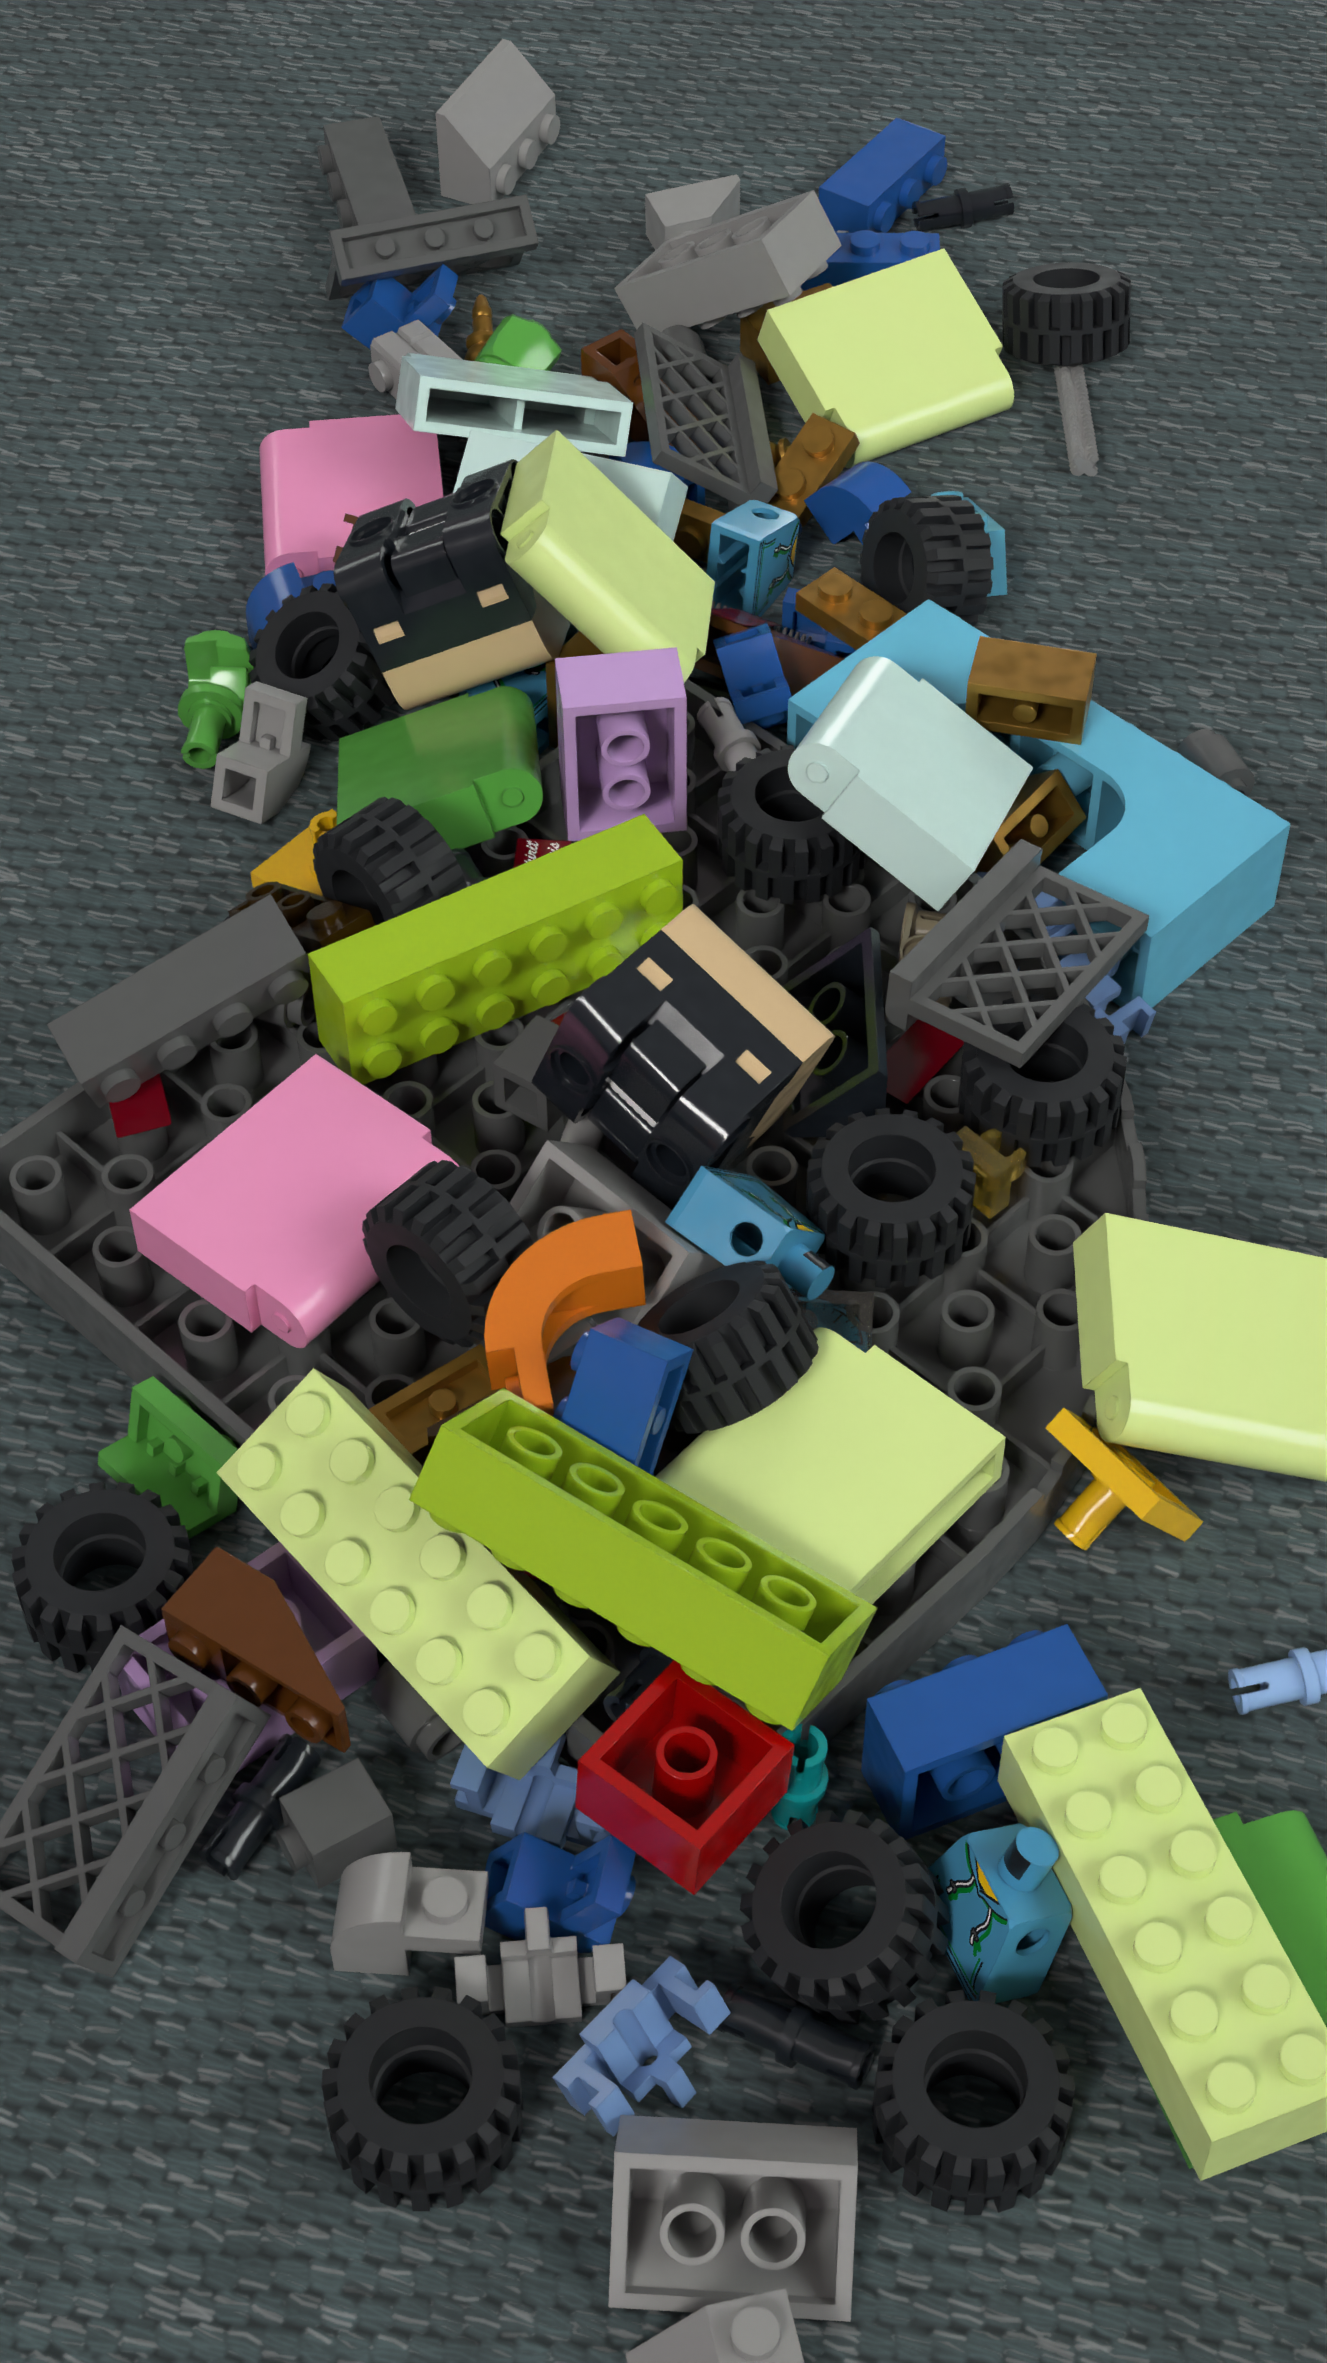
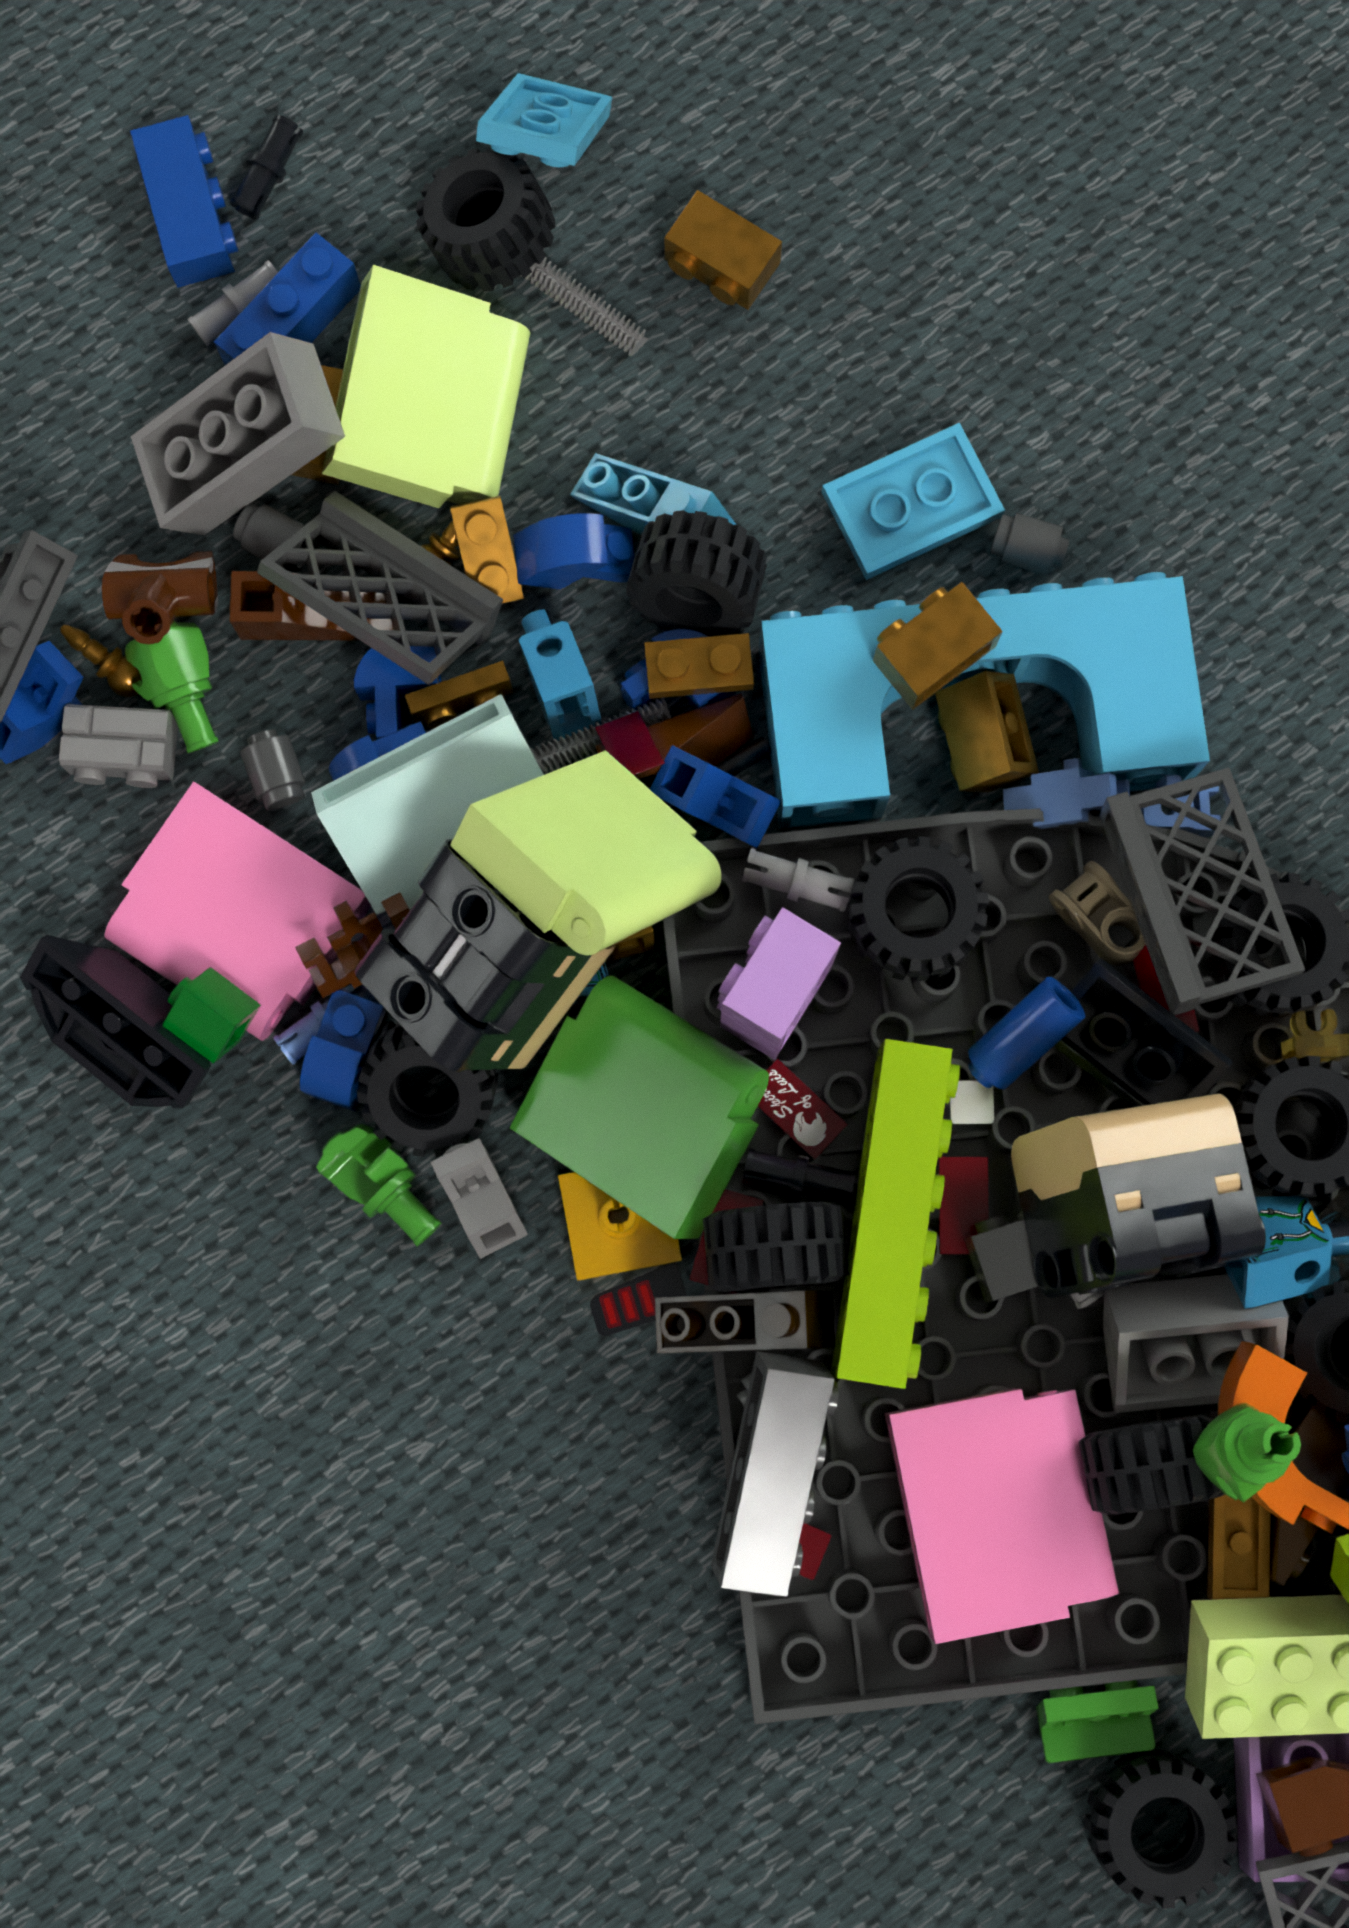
camera: 50 degrees left, 30 degrees up
(199, 481) = (112, 1022): none -> black wedge
(253, 512) = (210, 1014): none -> green brick
(512, 402) = (263, 734): light aqua piece -> none
(512, 1215) = (1245, 1450): none -> bright green piece
(556, 304) = (155, 593): none -> reddish brown connector
(690, 208) = (100, 387): light grey slope -> none
(784, 938) = (1024, 1034): none -> blue brick
(908, 777) = (973, 811): light aqua piece -> none
(1167, 683) = (912, 501): none -> medium azure plate
(1174, 288) = (544, 120): none -> medium azure plate
(1216, 459) = (722, 251): none -> pearl gold brick

